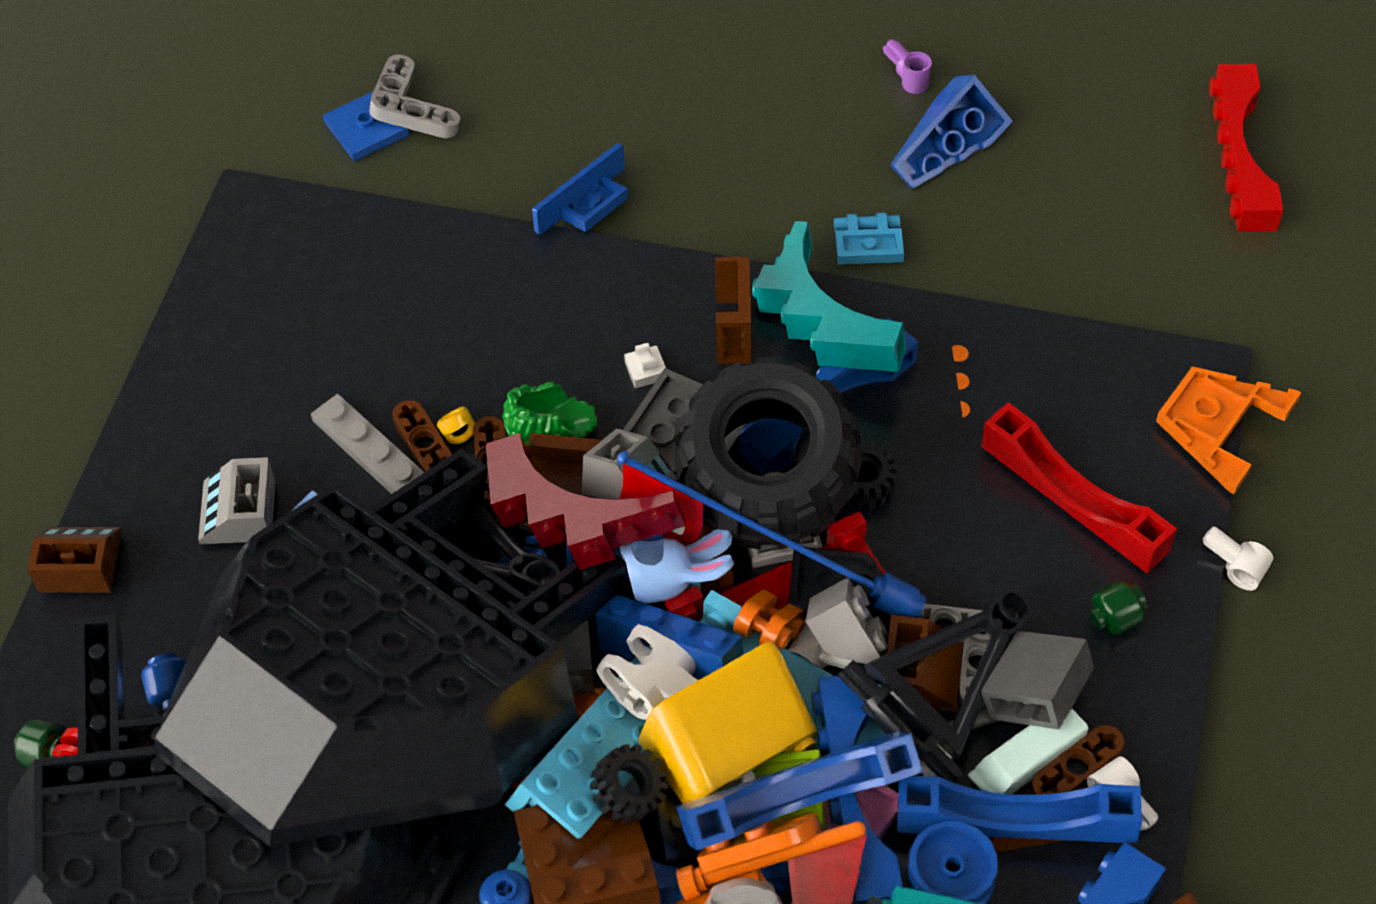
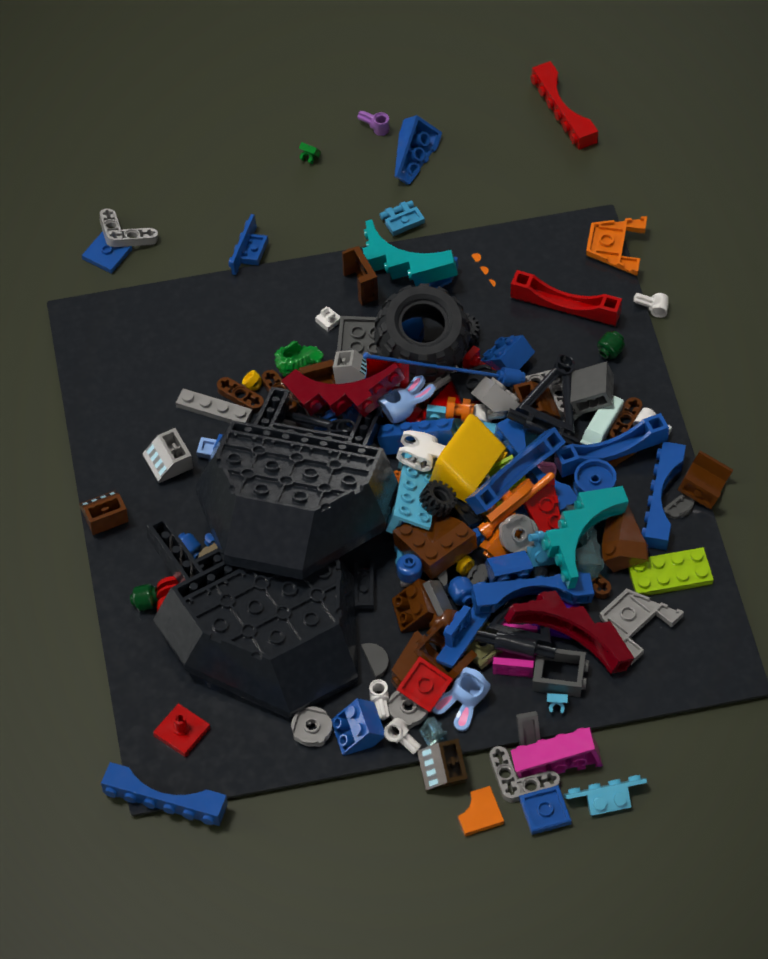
camera: 25 degrees left, 0 degrees up
(774, 76) = (309, 150): none -> green tile
(920, 550) = (508, 353): none -> blue slope

